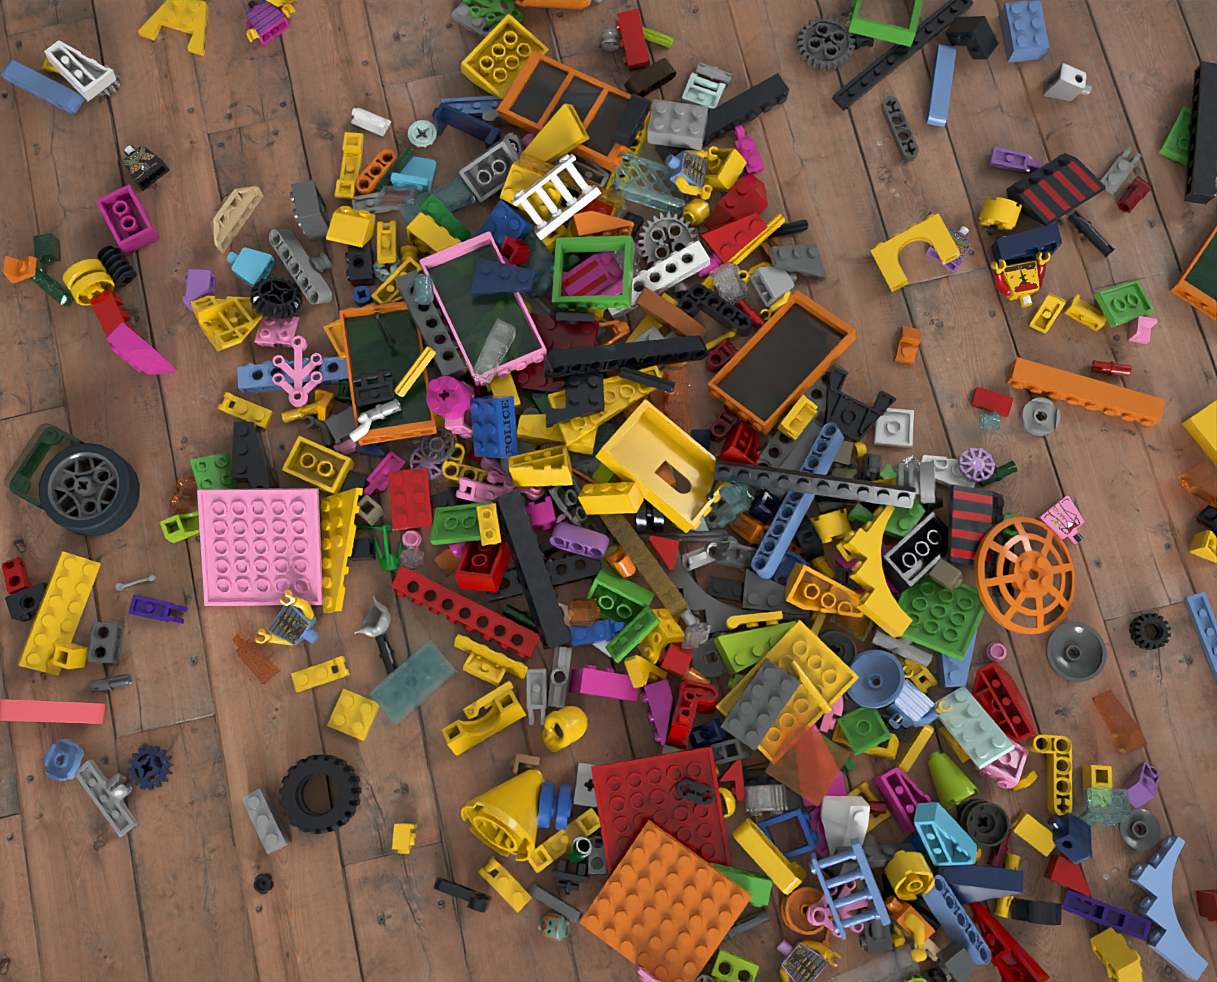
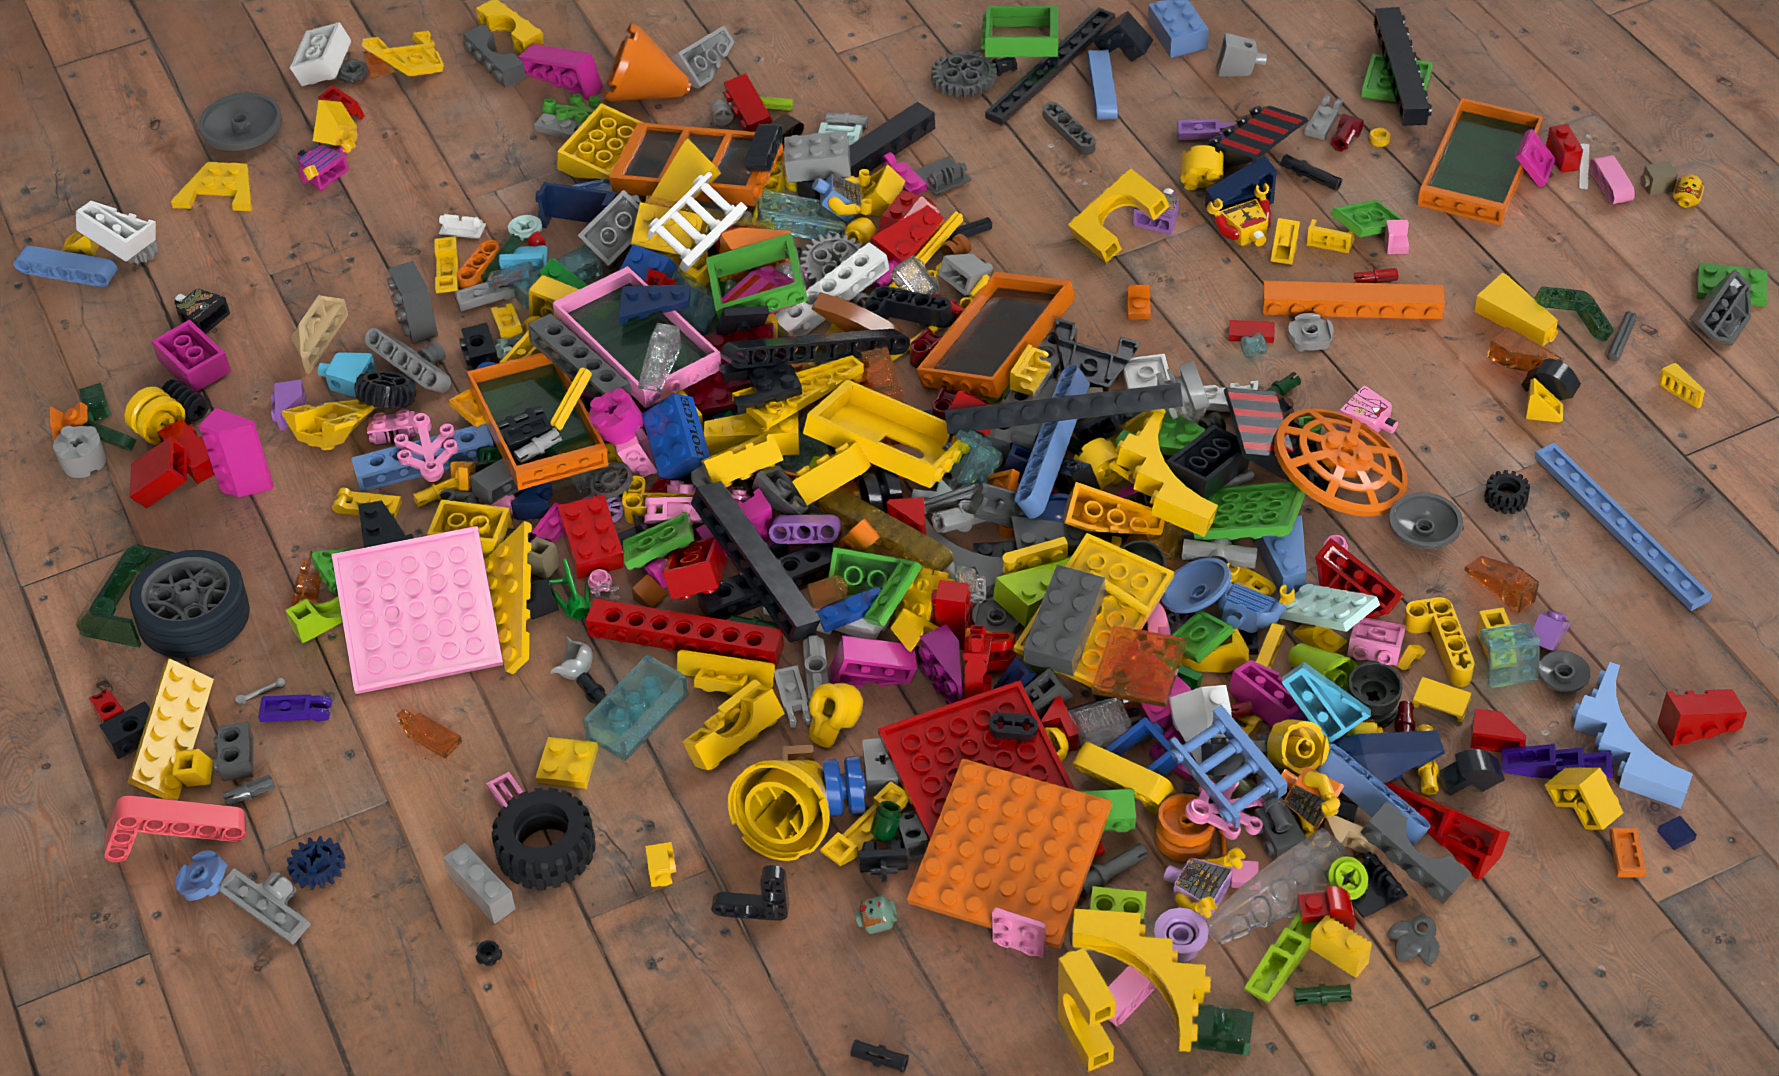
camera: 10 degrees left, 30 degrees down
(27, 300) = (79, 451): none -> light grey brick
(83, 345) = (158, 472): none -> red brick
(292, 623) = (470, 681): torso -> none
(313, 735) = (499, 781): none -> bright pink tile
(319, 674) = (515, 731): yellow plate -> none
(351, 226) = (462, 311): yellow slope -> none
(362, 429) = (522, 455): white arm -> none
(391, 341) = (514, 368): black hinge -> none
(423, 289) = (564, 322): clear light blue brick -> none
(427, 153) = (536, 239): none -> red hinge
(489, 524) = (693, 521): yellow hinge -> none
(505, 884) = (810, 893): yellow plate -> none
(554, 902) = (862, 888): dark grey beam -> none
(647, 379) = (844, 362): black axle -> none
(780, 159) = (943, 175): none -> dark grey hinge
(798, 258) = (992, 246): dark grey wing -> none
(843, 951) = (1243, 875): none -> bright pink tile
(946, 575) = (1247, 474): dark tan brick -> none
(976, 464) = (1251, 381): lavender wheel -> none
(1071, 836) = (1487, 688): dark blue torso -> none
(1160, 204) = (1379, 137): none -> yellow tile

